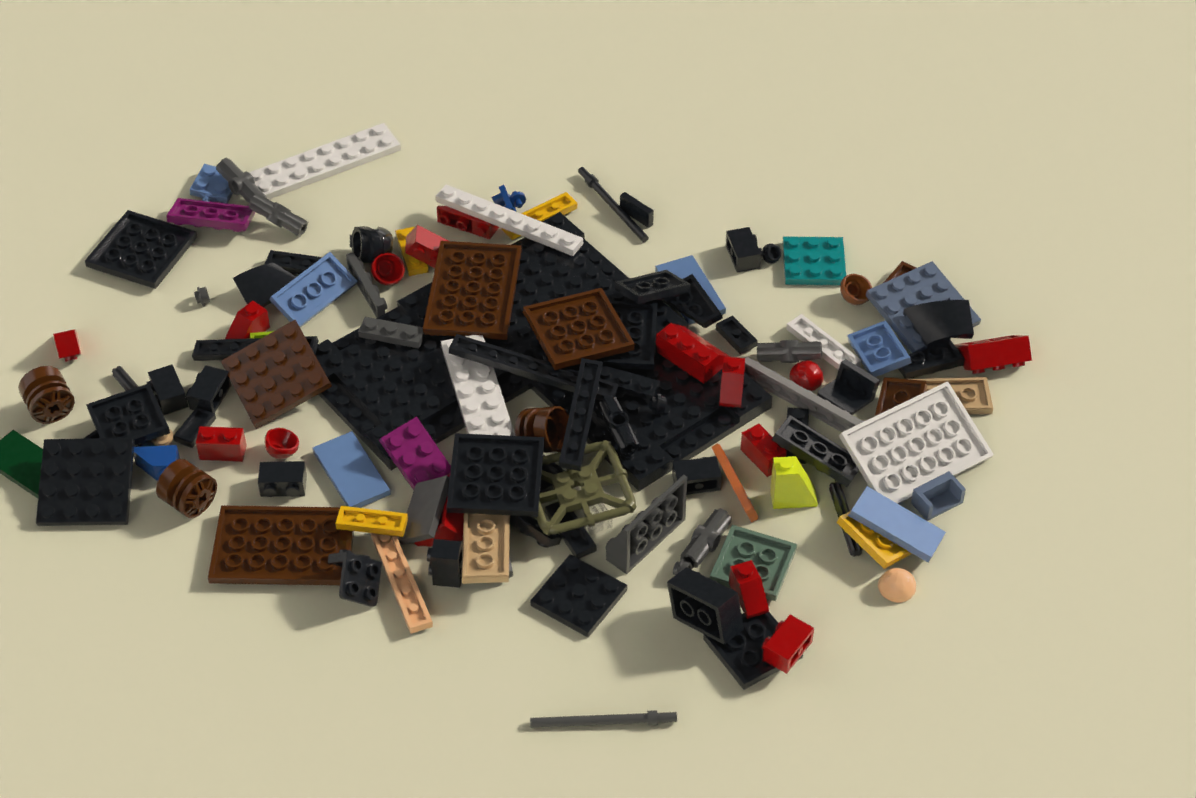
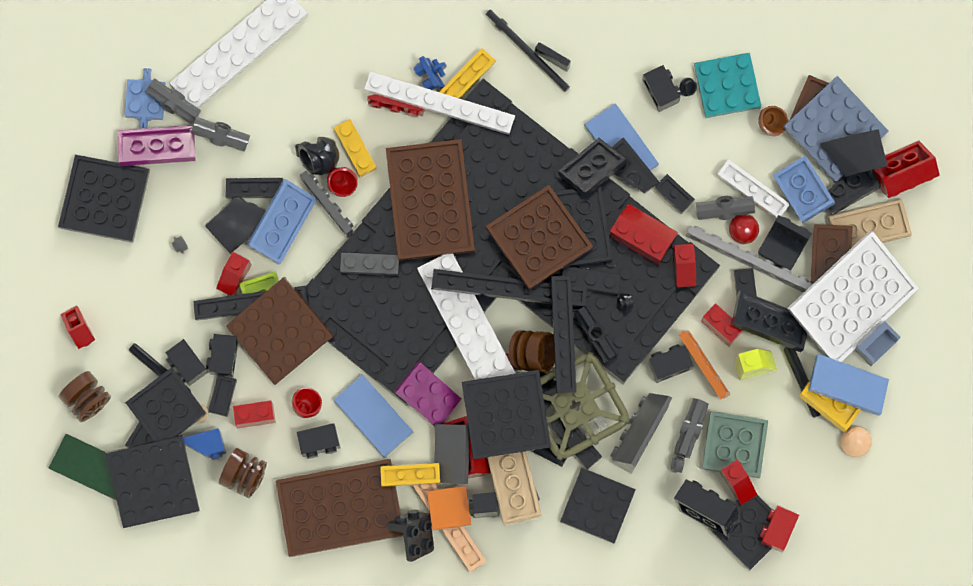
camera: 10 degrees left, 30 degrees up
(405, 561) = (449, 508): none -> orange tile
(423, 245) = (371, 151): red brick -> none

